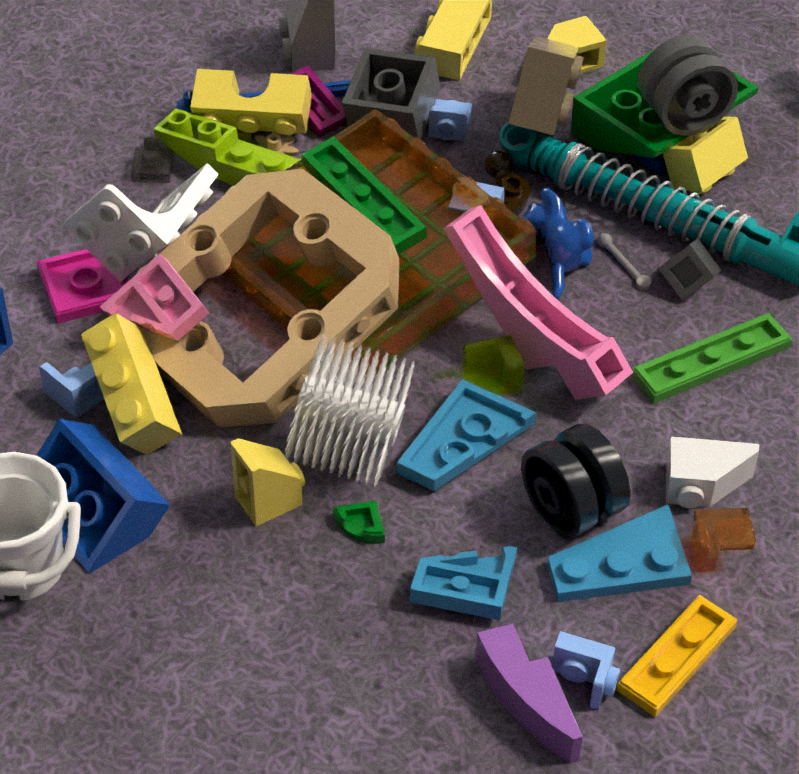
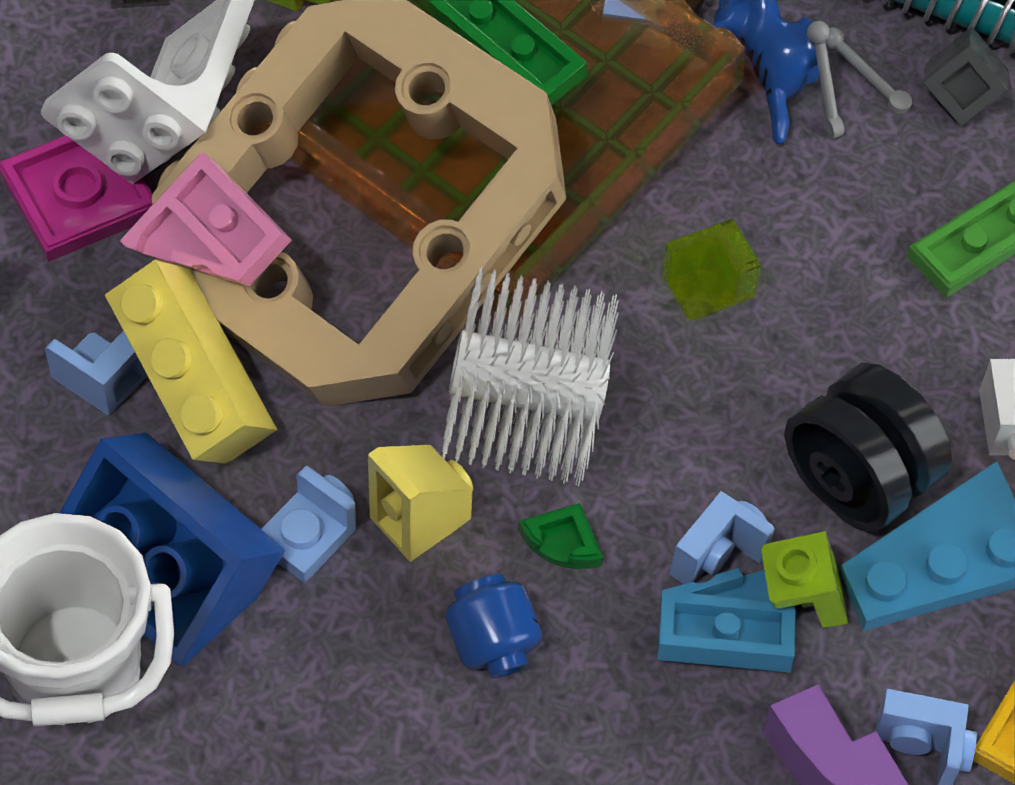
camera: 10 degrees left, 10 degrees up
(194, 494) = (313, 523): none -> light blue bracket
(301, 566) = (493, 625): none -> blue head
(462, 434) = (684, 382): dark azure wing -> none
(464, 525) = (714, 536): none -> light blue bracket
(523, 555) = (805, 574): none -> lime bracket
(537, 322) = (768, 193): bright pink arch -> none
(587, 226) = (818, 33): none -> light grey hinge

